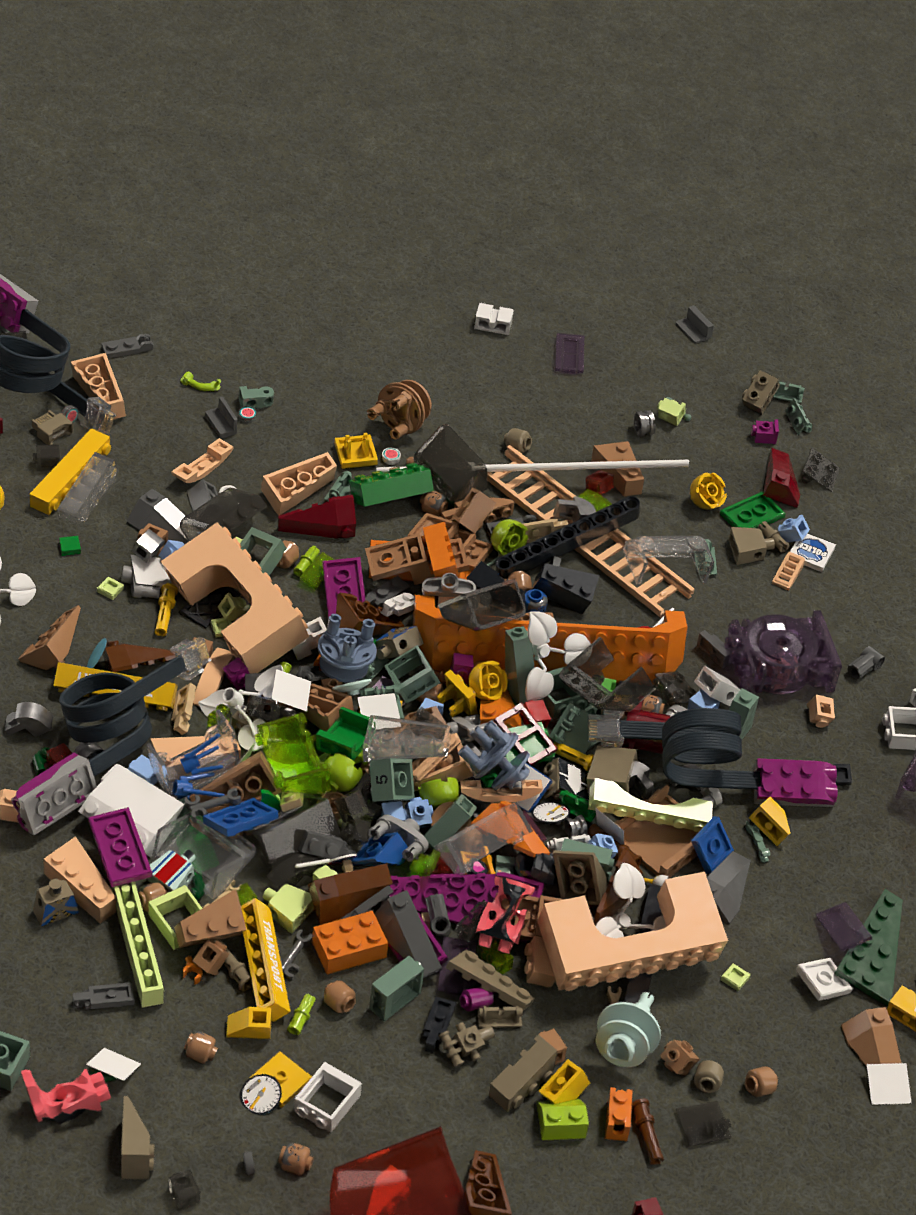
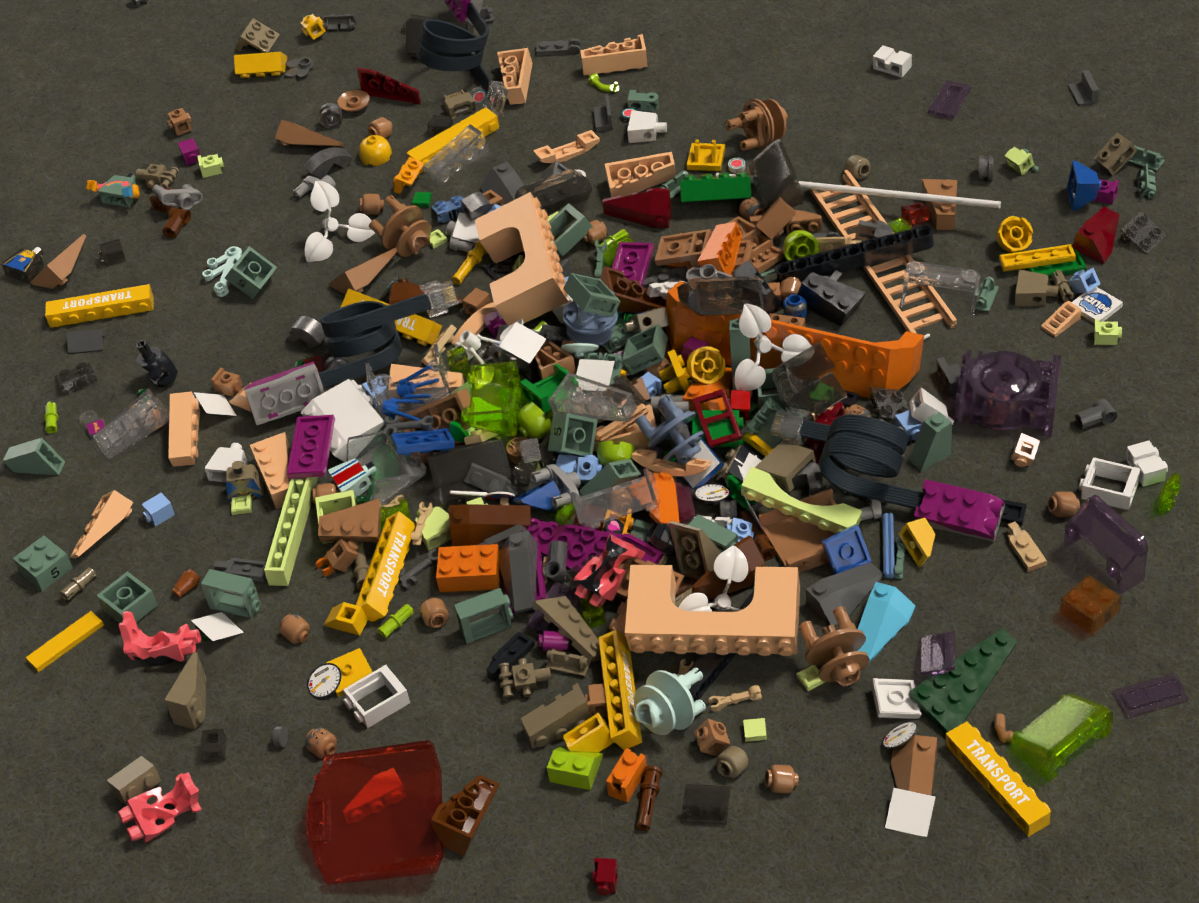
camera: 35 degrees right, 0 degrees up
(18, 560) = (371, 204): none -> medium nougat head
(22, 884) = (222, 459): none -> white torso
(43, 519) = (407, 174): none -> light orange bracket
(50, 1025) = (186, 582): none -> dark orange cone
(60, 926) = (241, 505): none -> yellowish green tile
(77, 581) = (404, 229): none -> medium nougat piece
(110, 550) = (442, 208): none -> medium blue hinge
(116, 1035) = (217, 582): none -> sand green window
(202, 350) = (615, 56): none -> light nougat wedge
(273, 426) = (644, 127): none -> white torso
(277, 894) = (424, 514): none -> tan piece
(303, 572) = (600, 253): none -> sand green piece
(358, 627) = (591, 295): none -> sand green window
(570, 1031) = (619, 689): none -> yellow brick
(691, 1005) = (753, 693): none -> tan piece
(710, 1040) = (755, 729): none -> yellowish green tile
(737, 511) = (1037, 257): none -> yellow tile
(741, 831) = (888, 545): none -> medium blue axle
(746, 430) = (1082, 185): none -> blue slope
(746, 943) = (836, 650): none -> medium nougat piece
(773, 908) = (883, 617): none -> medium azure wedge
(836, 578) = (1106, 333): none -> yellowish green brick
(846, 1012) = (899, 734): none -> white sticker
(864, 807) = (1025, 548): none -> tan hinge
(880, 757) = (1063, 504): none -> medium nougat head

